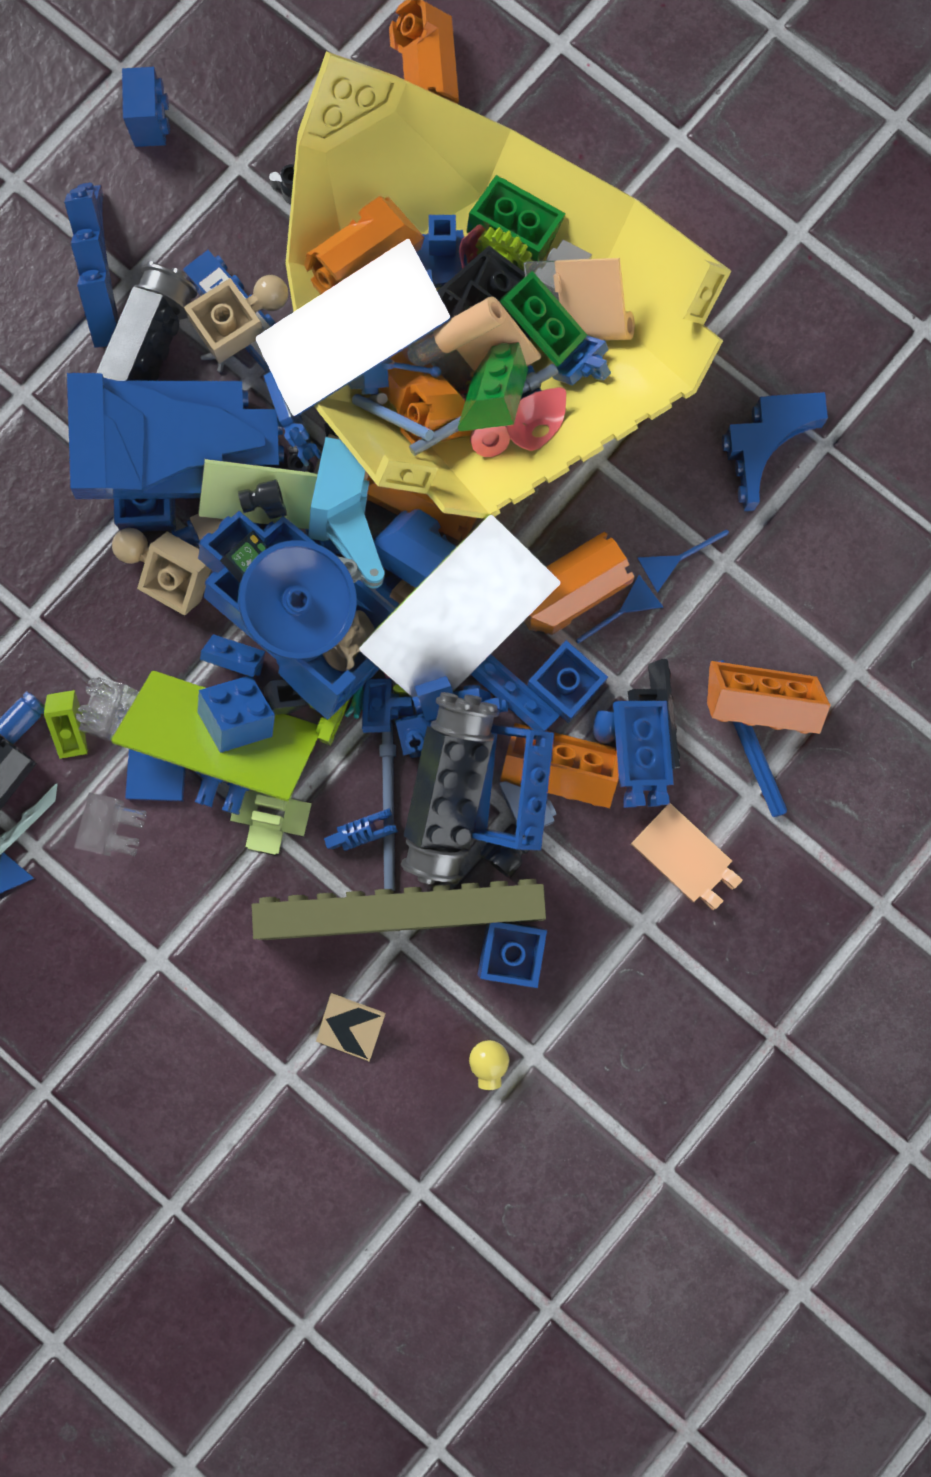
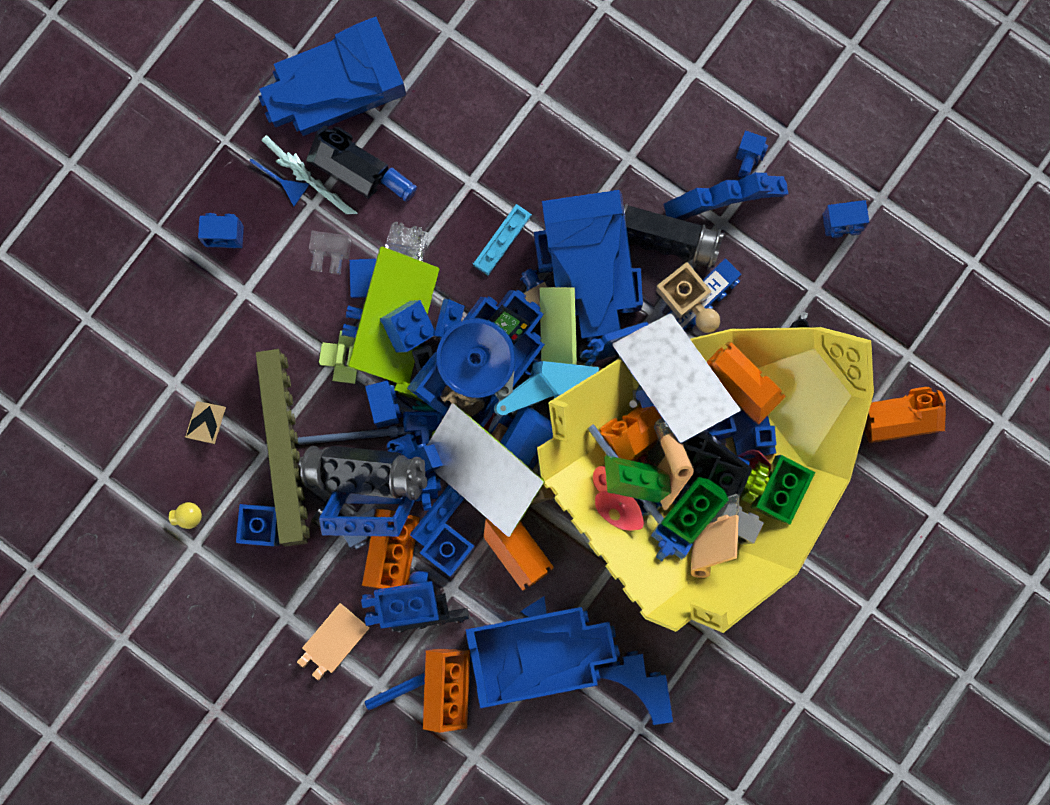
camera: 90 degrees right, 0 degrees up
(32, 223) = (750, 152): none -> blue brick
(58, 986) = (221, 231): none -> blue brick
(62, 722) = (400, 211): lime slope -> none
(117, 576) = (502, 240): none -> medium azure tile
(170, 568) = (505, 271): tan brick -> none
(266, 496) = (553, 332): black piece -> none
(347, 758) = (382, 404): none -> blue brick
(360, 832) = (335, 417): blue hinge -> none
(393, 417) = (617, 412): medium blue bar -> none
(434, 371) = (650, 437): blue hinge -> none
(638, 599) = (513, 598): blue piece -> none
(728, 564) = (539, 656): none -> blue panel

